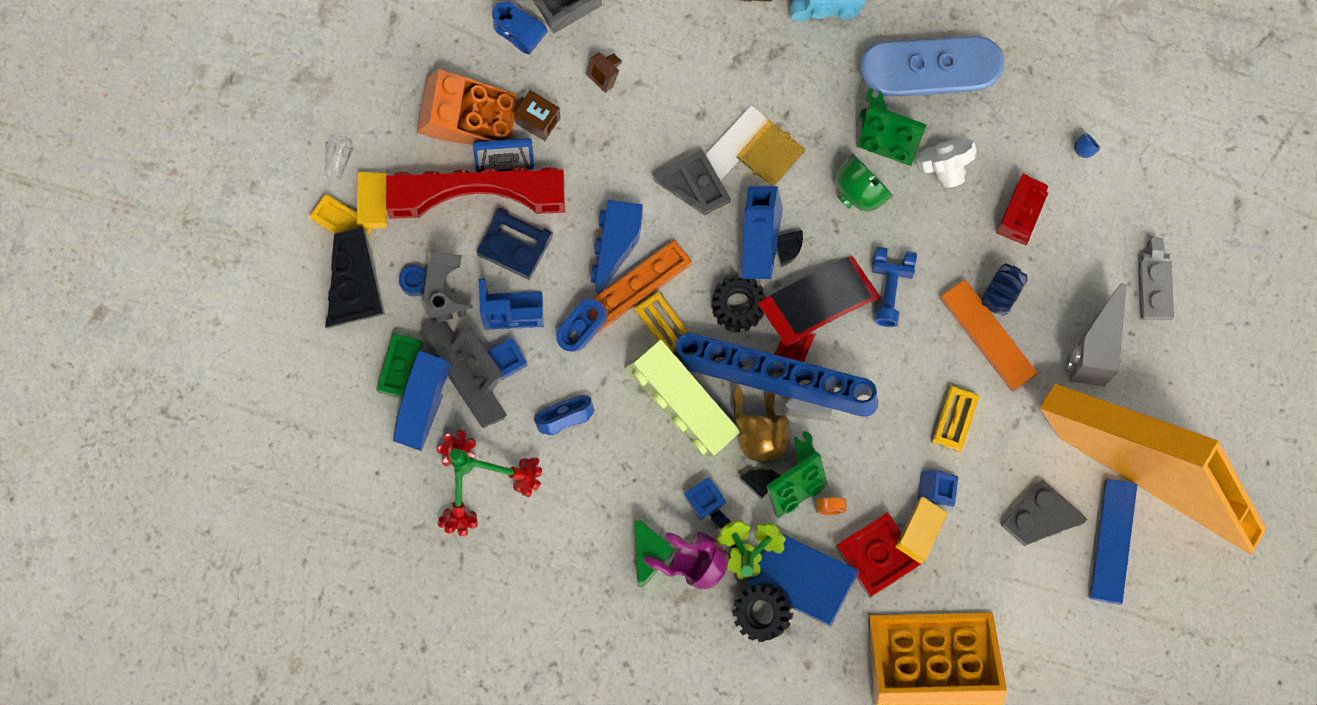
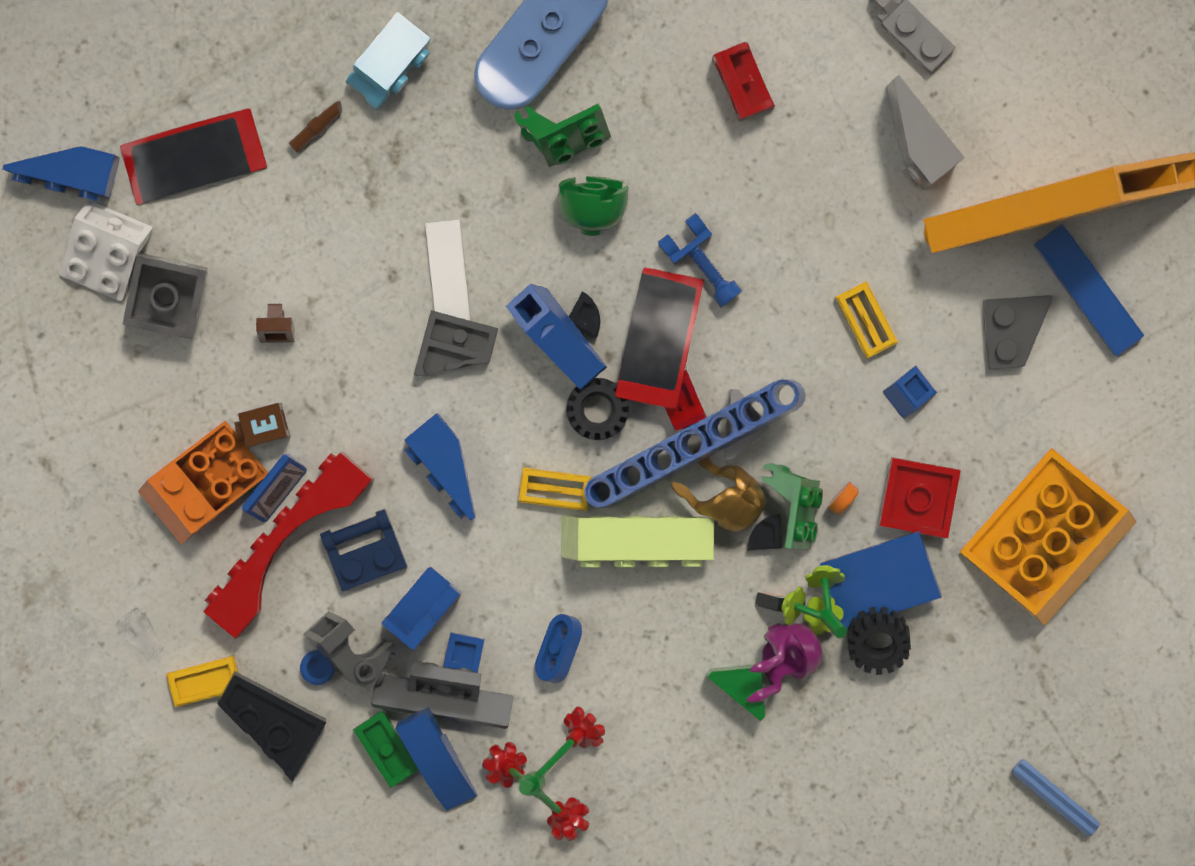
camera: 45 degrees left, 15 degrees up
(371, 200) = (210, 640): yellow tile -> none
(522, 30) = (168, 363): blue piece -> none
(581, 323) = (494, 560): blue plate -> none
(642, 281) = (498, 480): orange tile -> none
(704, 498) = (739, 597): blue plate -> none
(771, 153) = (486, 249): clear yellow piece -> none
(921, 530) = (933, 443): yellow tile -> none
(948, 160) = (639, 105): white plant -> none
(988, 335) = (822, 220): orange tile -> none
(1004, 289) = (799, 172): dark blue gear -> none

